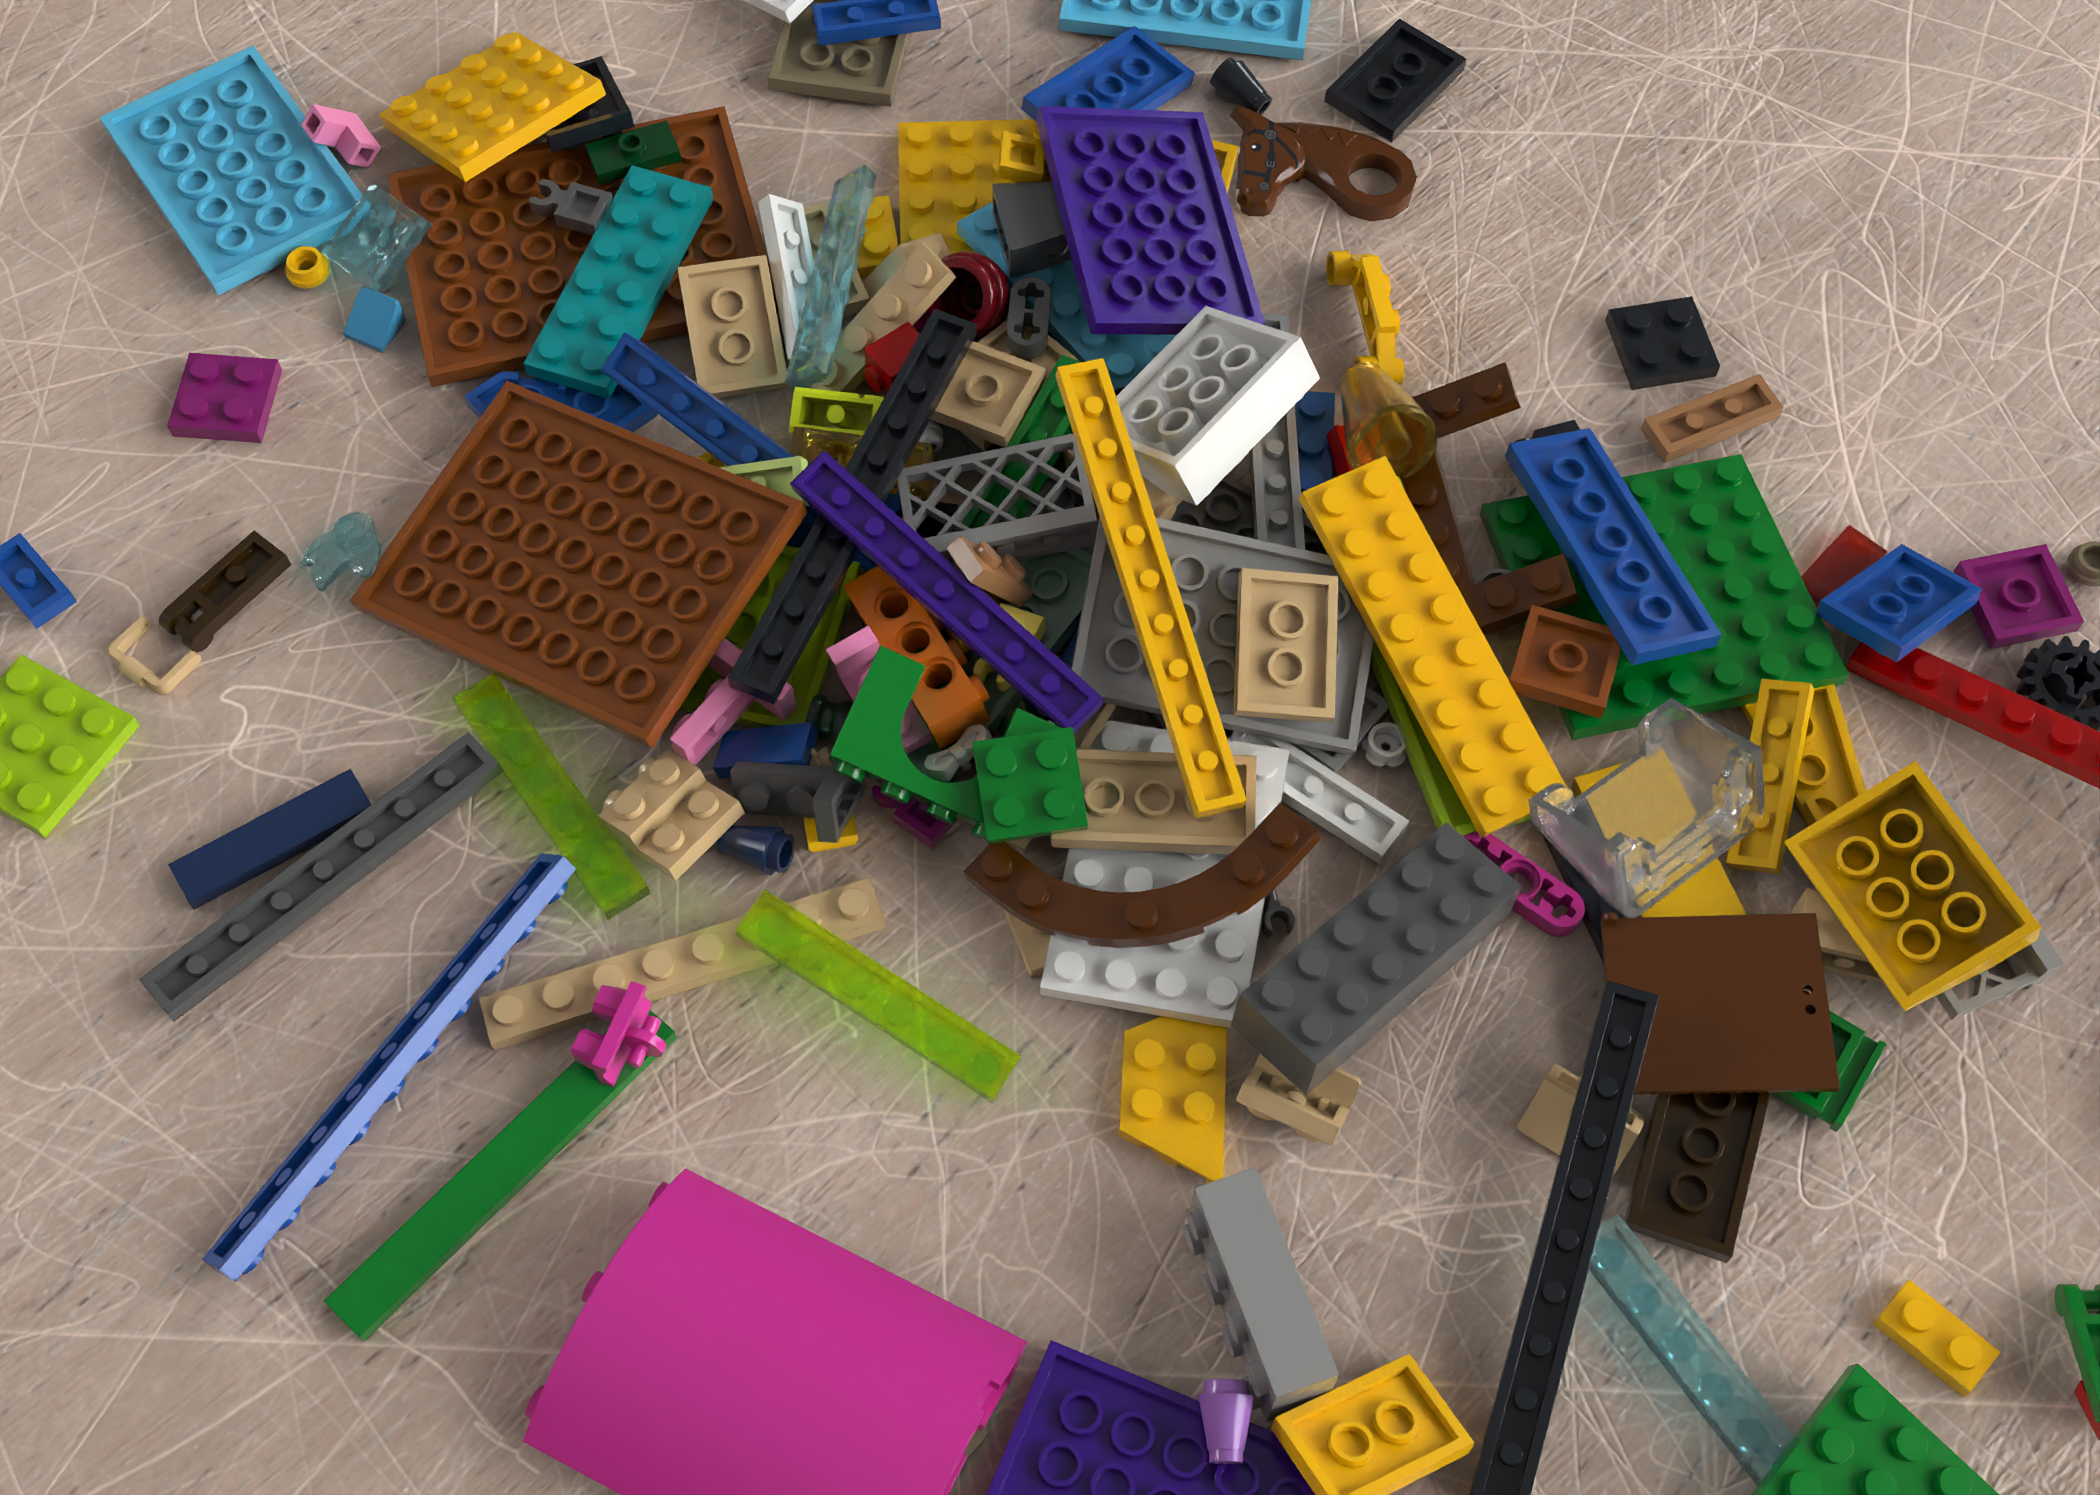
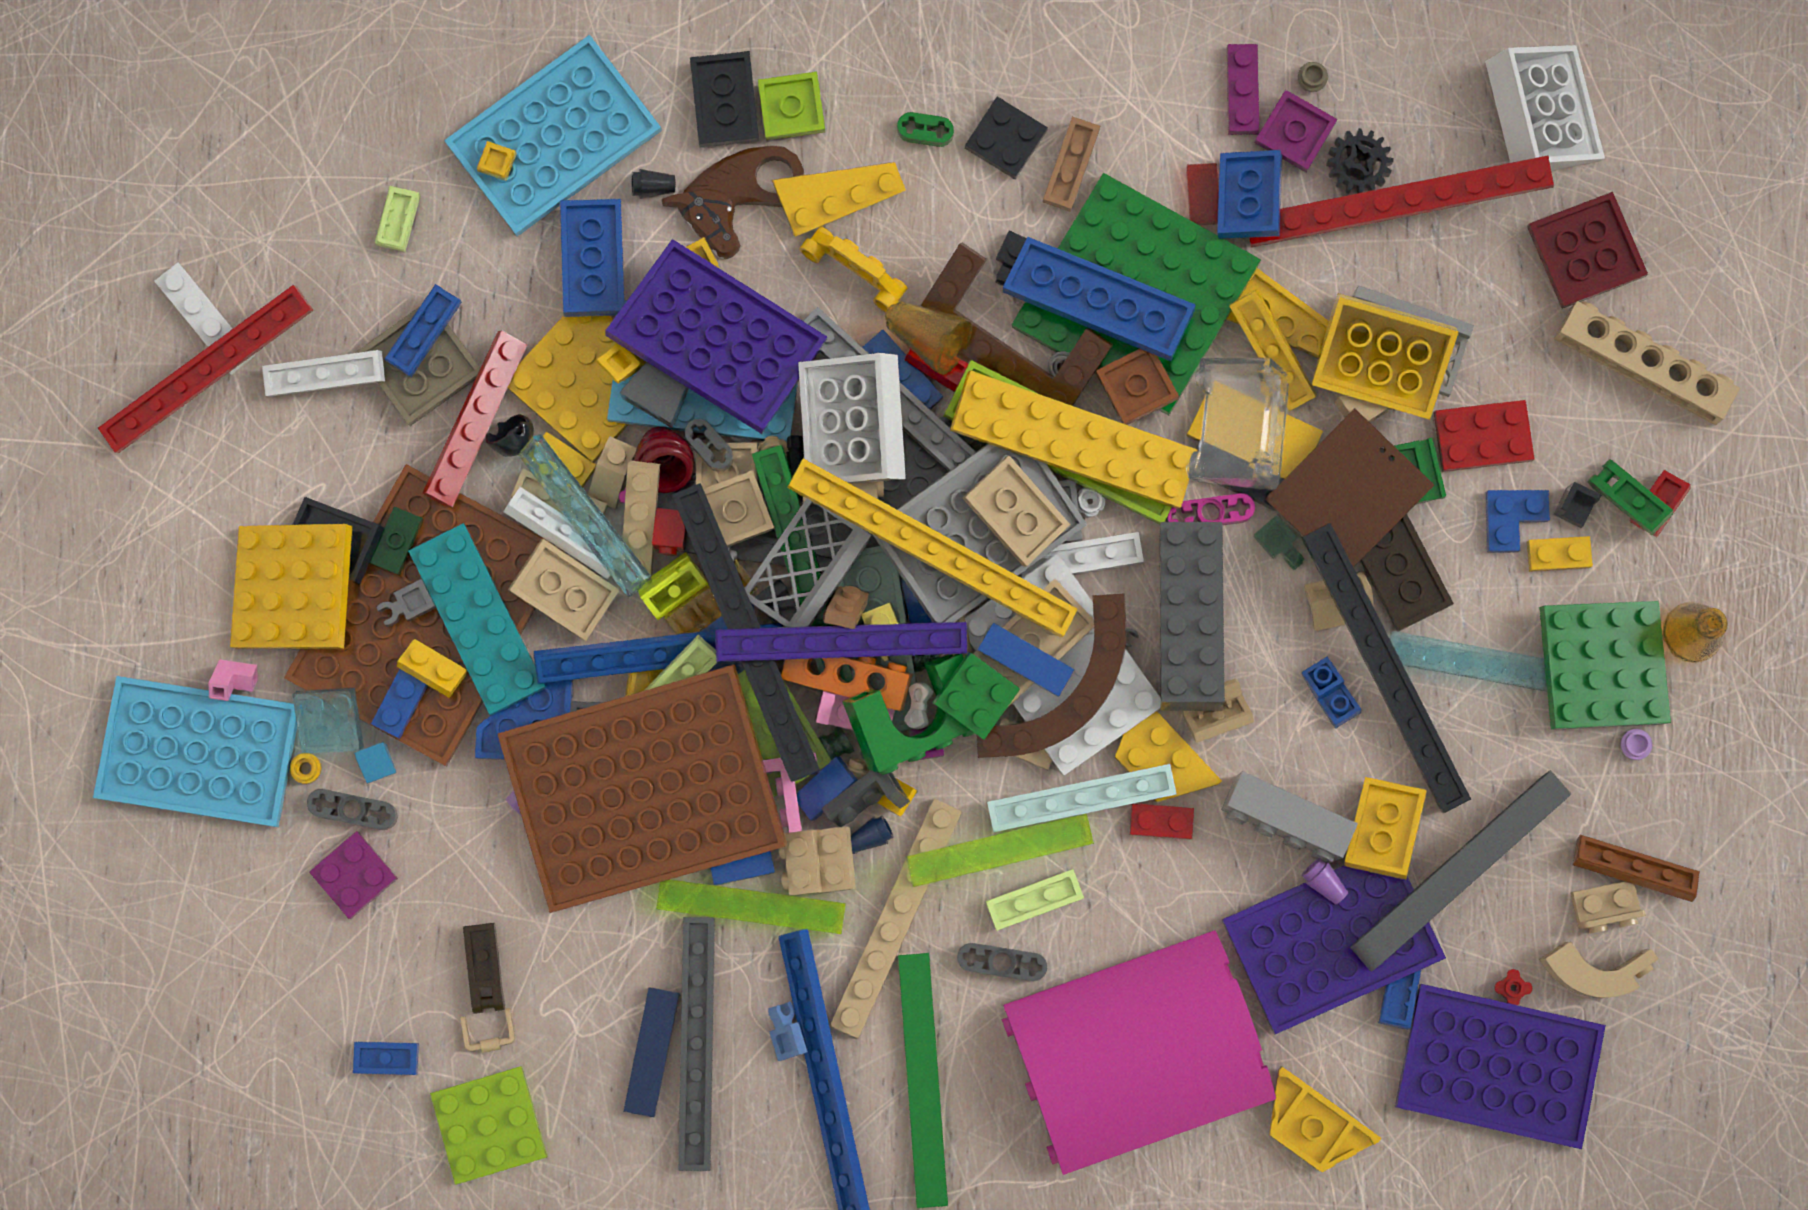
camera: 45 degrees left, 20 degrees up
(300, 357) = (331, 796): none -> dark grey beam
(349, 545) = (517, 895): clear light blue plate -> none
(421, 960) = (787, 1036): none -> medium blue plate
(456, 283) = (399, 704): none -> blue plate
(523, 277) = (431, 668): none -> yellow plate
(594, 748) = (743, 869): none -> blue tile
(626, 1035) = (904, 967): dark pink hips -> none
(711, 1105) = (1026, 958): none -> dark grey beam
(830, 121) = (474, 419): none -> plate
(839, 160) = (511, 435): none -> black hair
(856, 1094) = (1034, 900): none -> yellowish green plate
(1039, 1034) = (1082, 798): none -> light aqua plate
(1101, 1159) = (1161, 821): none -> red plate
(1129, 805) = (1025, 659): none -> blue tile
(1420, 238) = (829, 195): none -> yellow wing
(1458, 137) = (791, 106): none -> lime plate
(1466, 1216) = (1331, 692): none -> blue slope
(1572, 981) = (1278, 539): none -> clear green plate
(1583, 264) = (927, 122): none -> green beam
(1917, 1222) = (1505, 512): none -> blue plate
(1959, 1110) = (1483, 435): none -> red plate
(1990, 511) = (1242, 89): none -> magenta plate
(2018, 1295) = (1576, 504): none -> black panel

